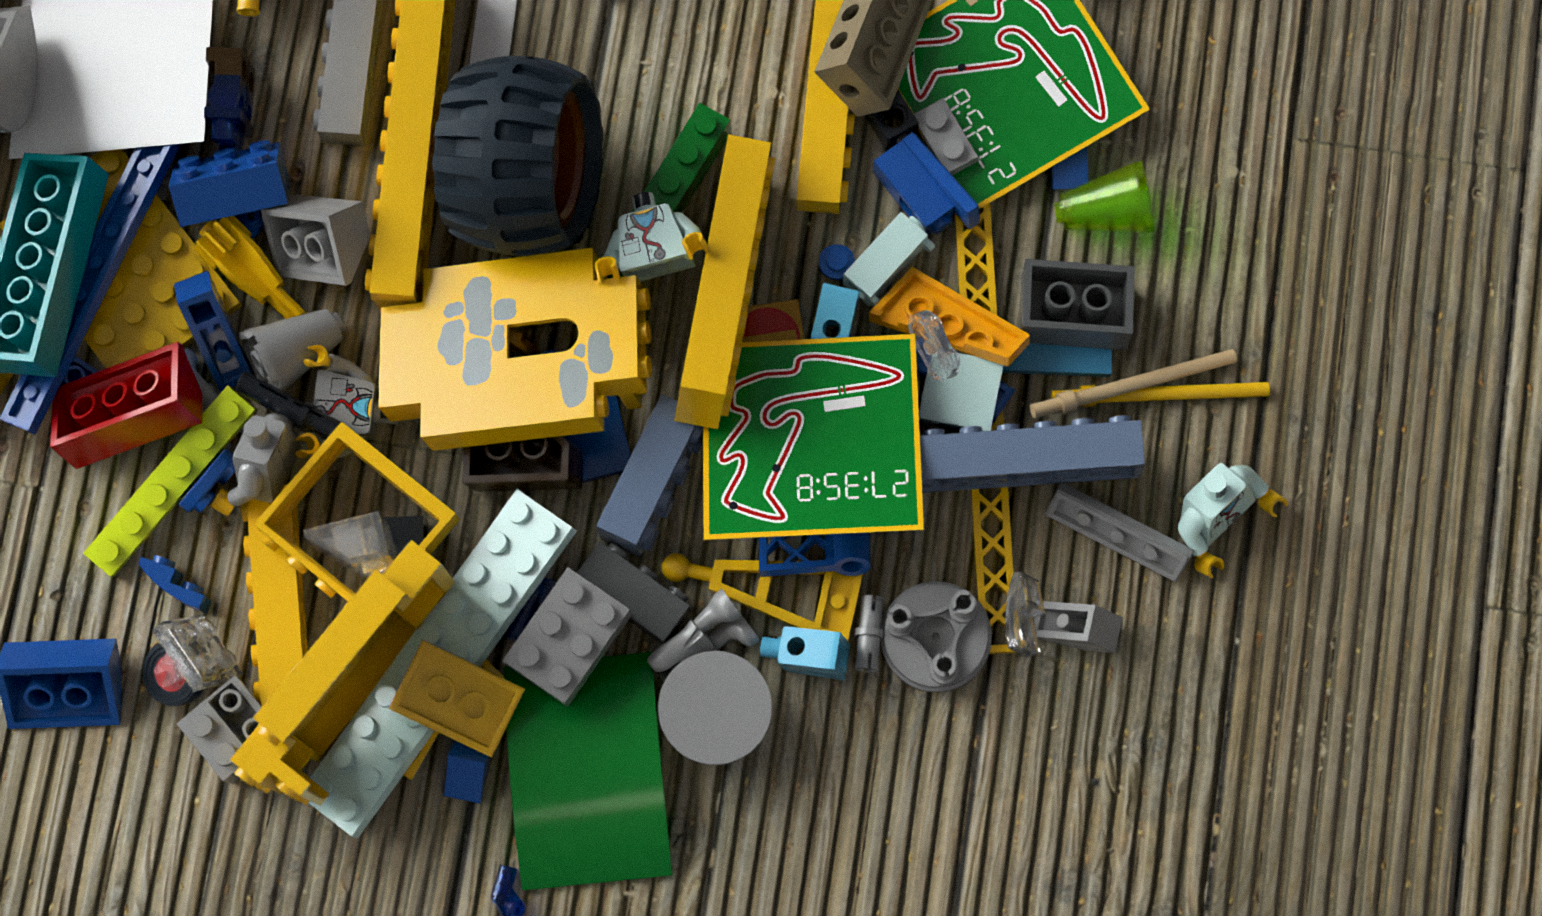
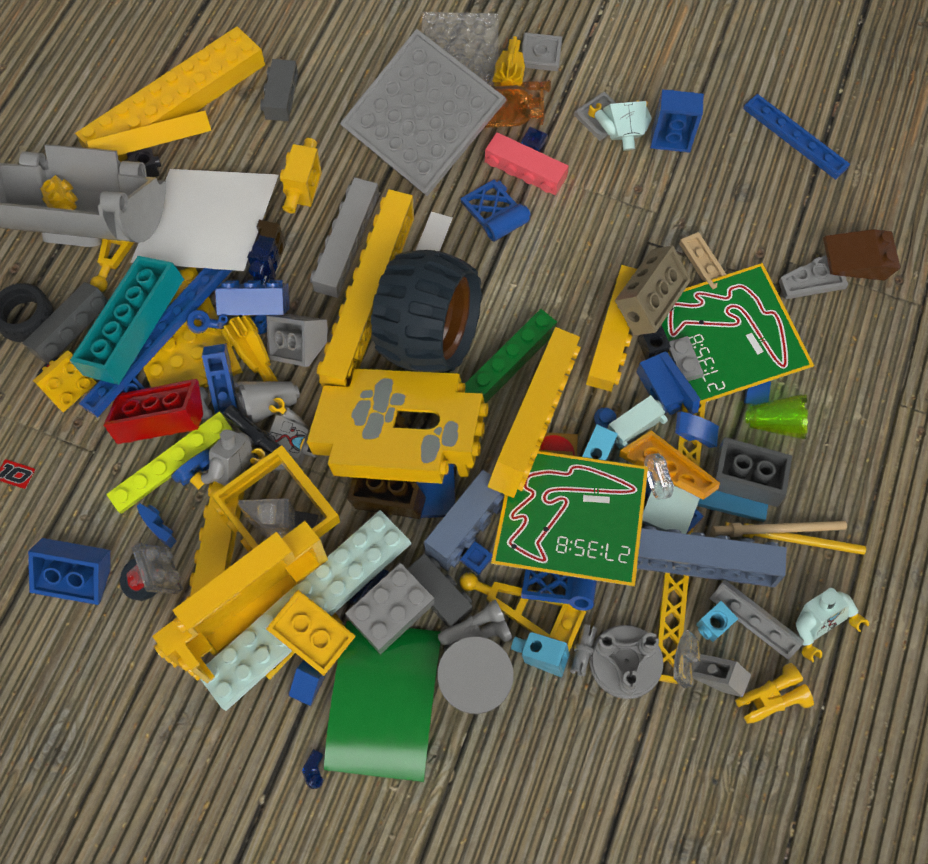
camera: 10 degrees right, 10 degrees down
(163, 238) = (205, 320): none -> blue plate
(222, 726) = (155, 615): light grey slope -> none
(650, 242) = (496, 378): light aqua torso -> none
(681, 529) = (476, 558): none -> blue plate
(982, 250) = (697, 428): none -> blue slope
(1065, 534) = (723, 615): none -> medium azure brick
(1155, 647) = (768, 698): none -> yellow piece

